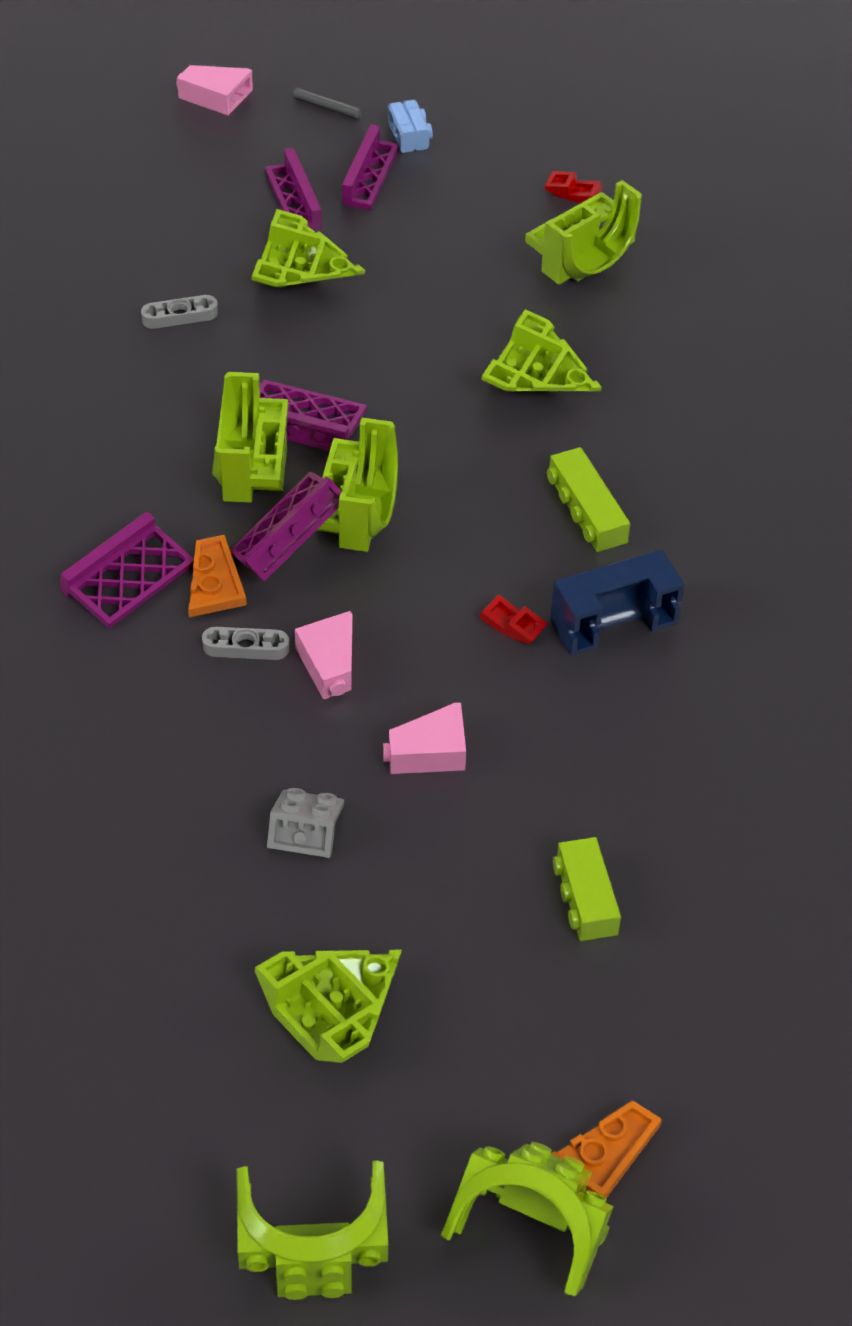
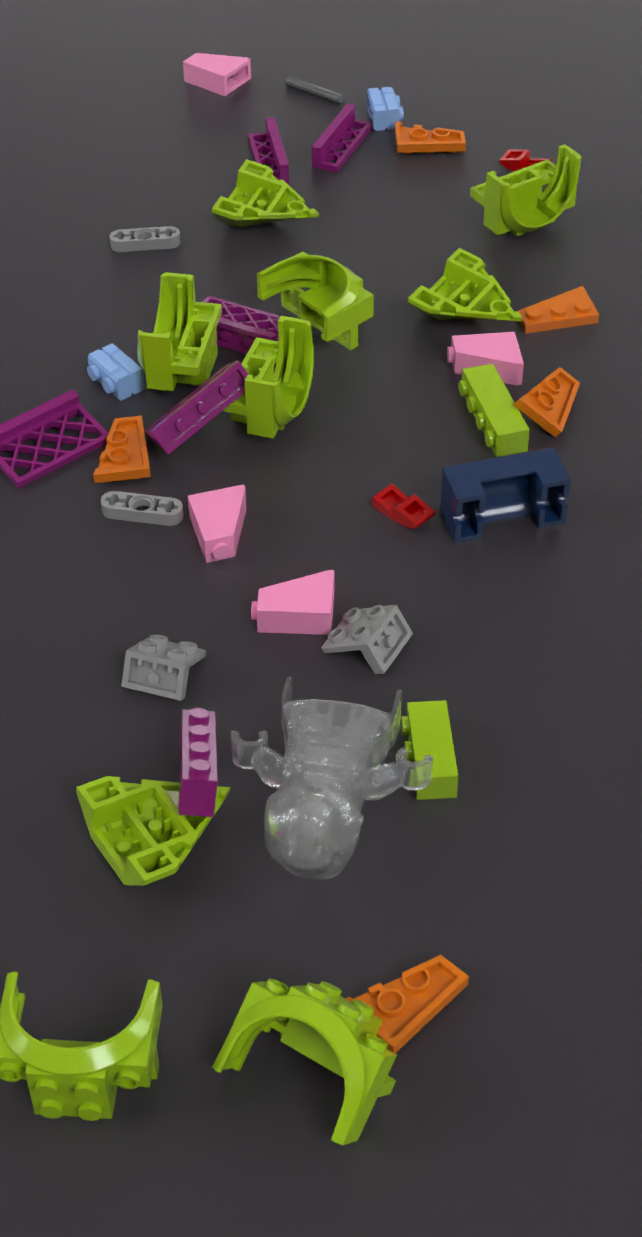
camera: 10 degrees right, 5 degrees down
(185, 483) = (116, 372): none -> light blue brick
(374, 941) = (198, 763): none -> magenta arch
(399, 383) = (332, 304): none -> lime piece
(455, 164) = (422, 140): none -> orange wing
(496, 931) = (325, 777): none -> clear piece
(506, 765) = (375, 631): none -> light grey bracket
(570, 430) = (486, 349): none -> bright pink slope
(637, 373) = (560, 312): none -> orange wing
(645, 485) = (550, 401): none -> orange wing

